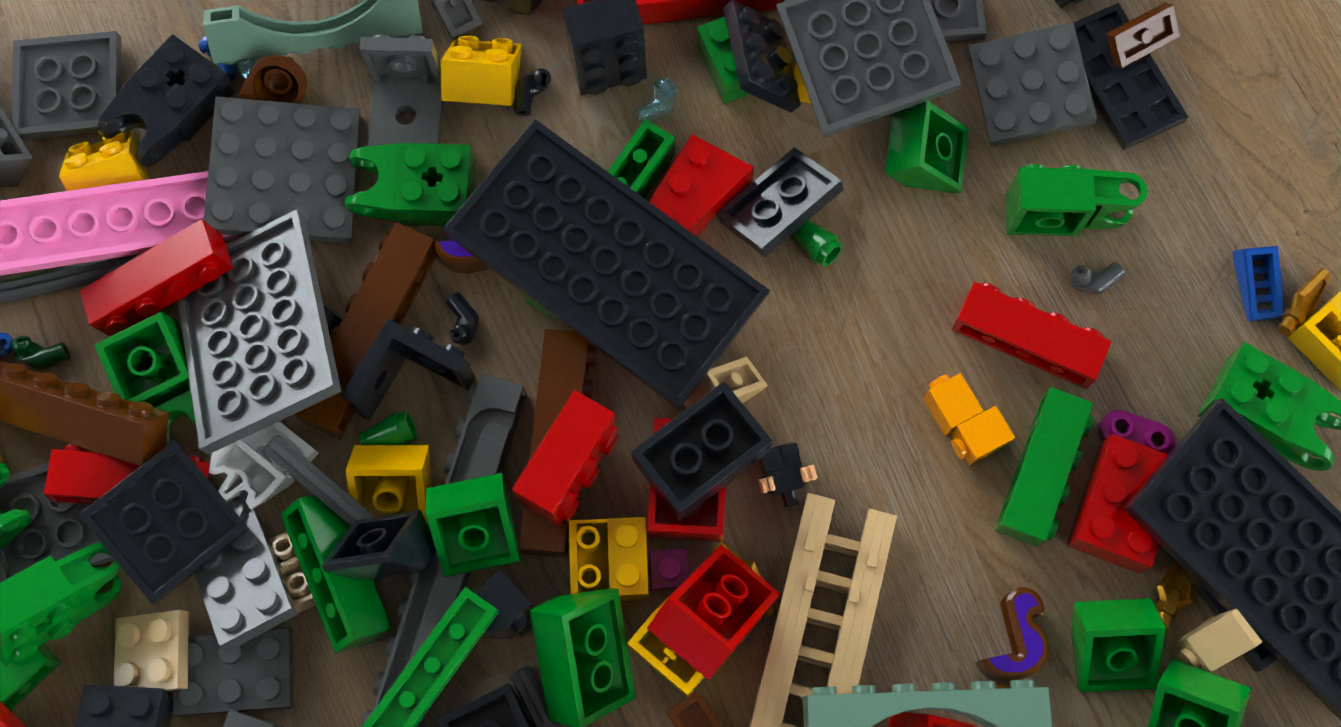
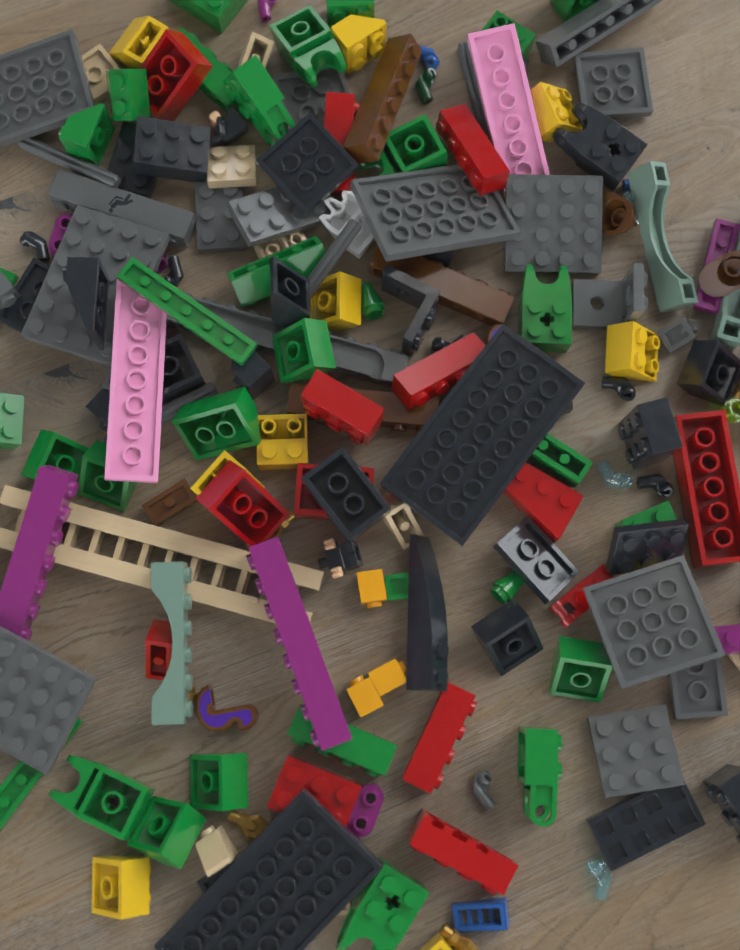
camera: 85 degrees right, 5 degrees up
(84, 659) = (227, 129): none -> black piece
(508, 326) = (436, 372): none -> red brick
(668, 46) = (657, 483): none -> black arm
(669, 568) = (278, 482): magenta plate -> none
(822, 390) = (396, 586): none -> green plate
(825, 151) = (576, 597): none -> red plate
(826, 427) = (371, 588): none -> light orange brick
(874, 347) = (426, 621): none -> black slope
(887, 242) = (507, 637): none -> black slope
(916, 521) = (300, 644): none -> magenta brick
(1143, 35) = (675, 839): plate -> none
(1183, 306) = (461, 852): none -> red wedge
(1197, 129) = (602, 876): none -> clear light blue arm

